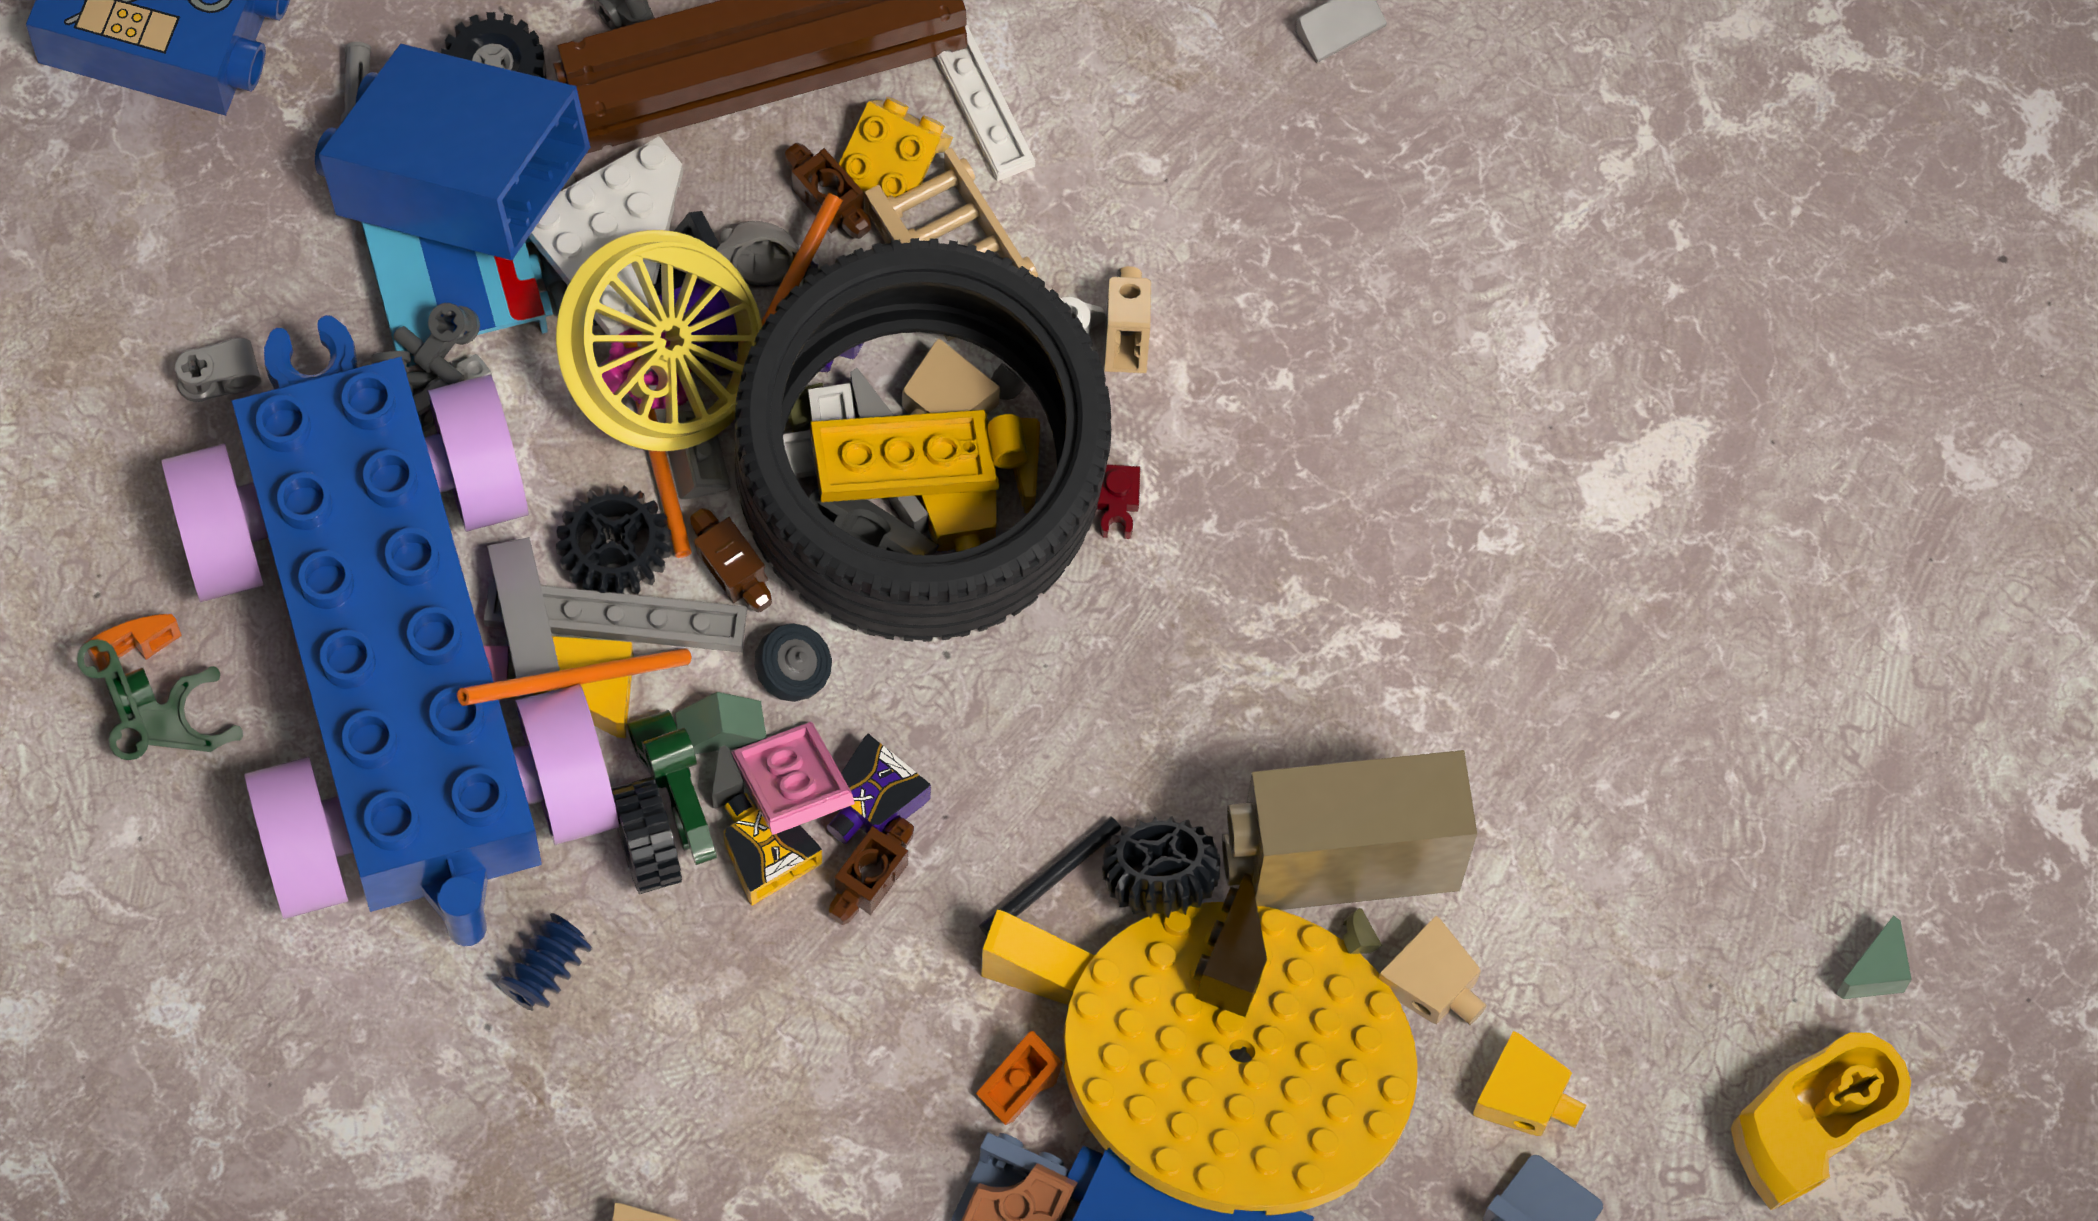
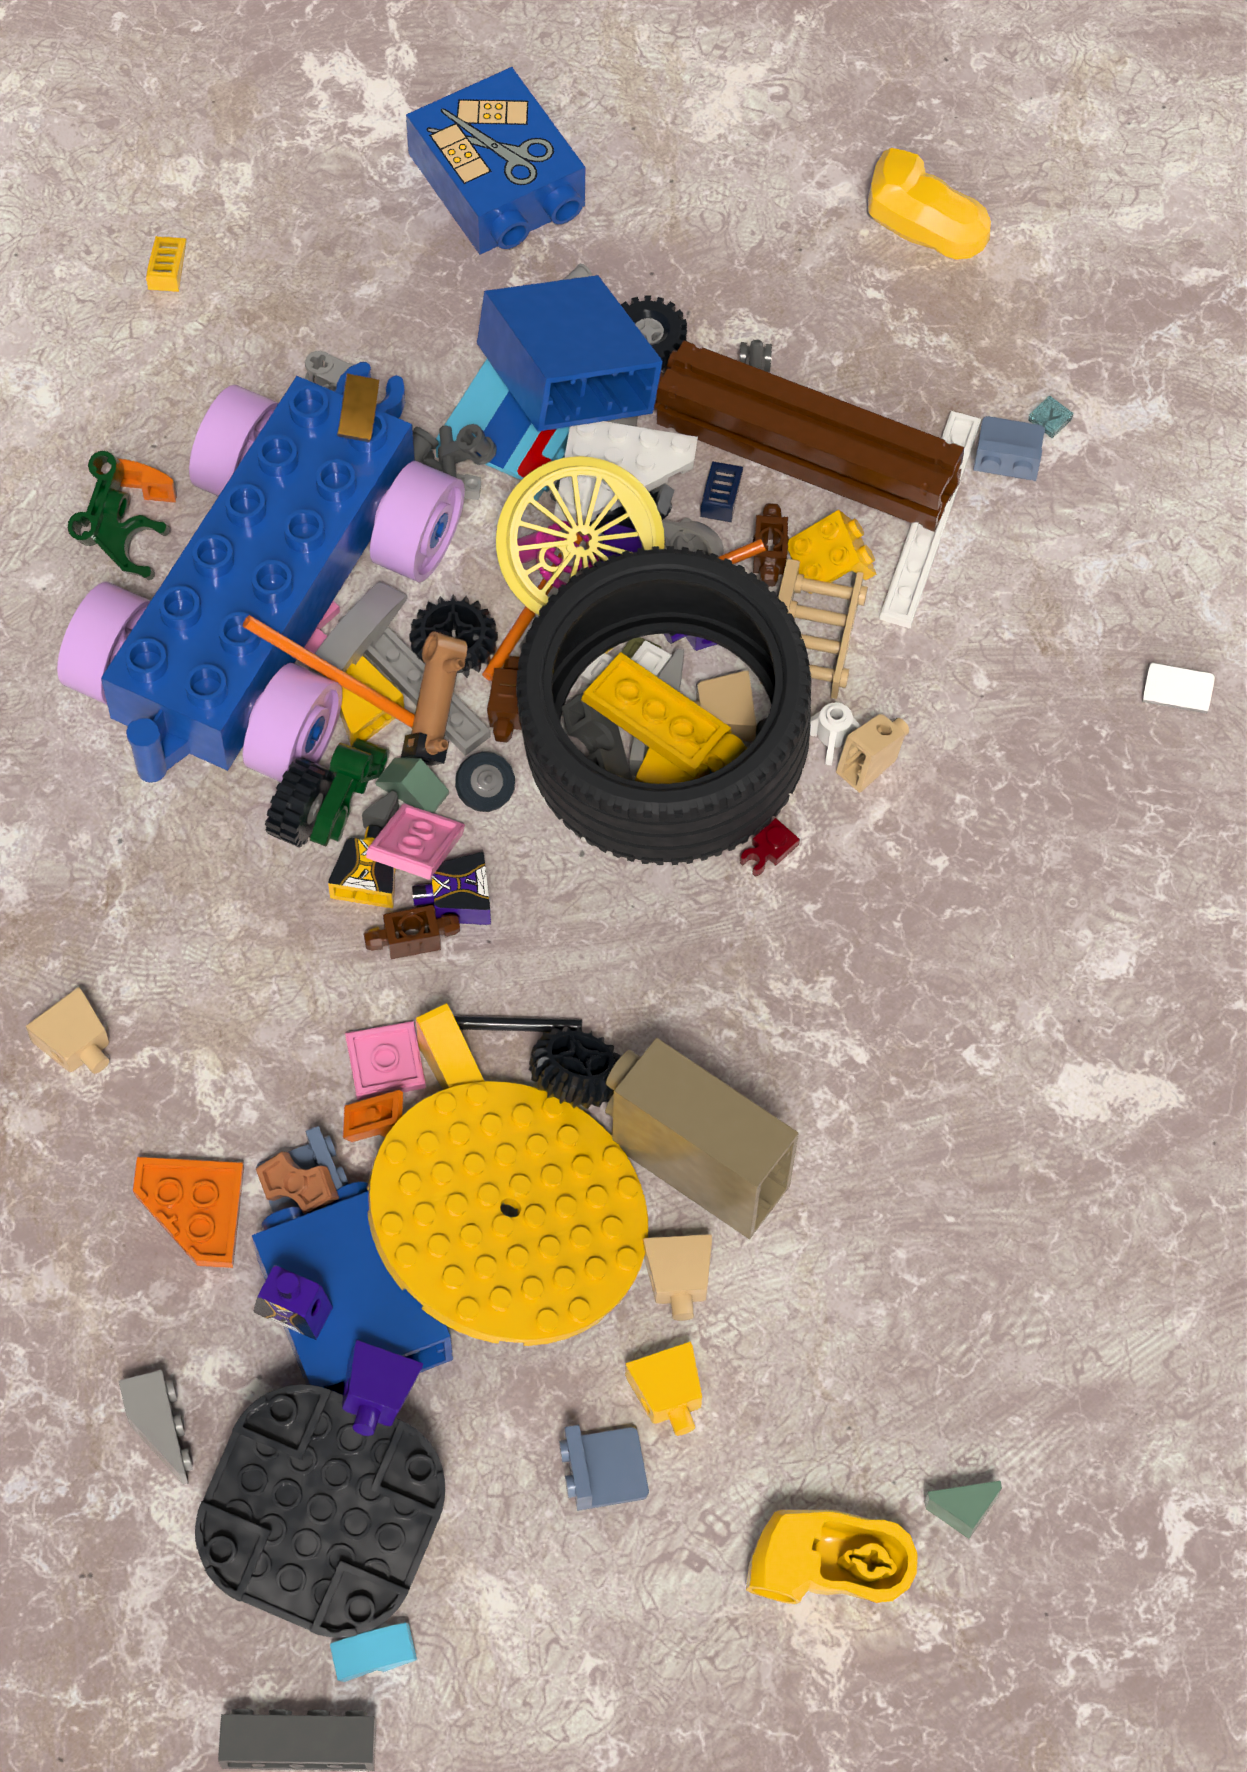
camera: 45 degrees right, 5 degrees down
(349, 382) = (358, 407): none -> pearl gold slope
(544, 963) = (180, 829): dark blue piece -> none
(649, 576) = (442, 660): none -> medium nougat piece
(736, 198) = (721, 510): none -> dark blue slope
(967, 1016) = (385, 1060): none -> bright pink tile
(1238, 956) = (554, 1153): dark brown slope -> none
(1360, 934) = (659, 1210): olive tile -> none

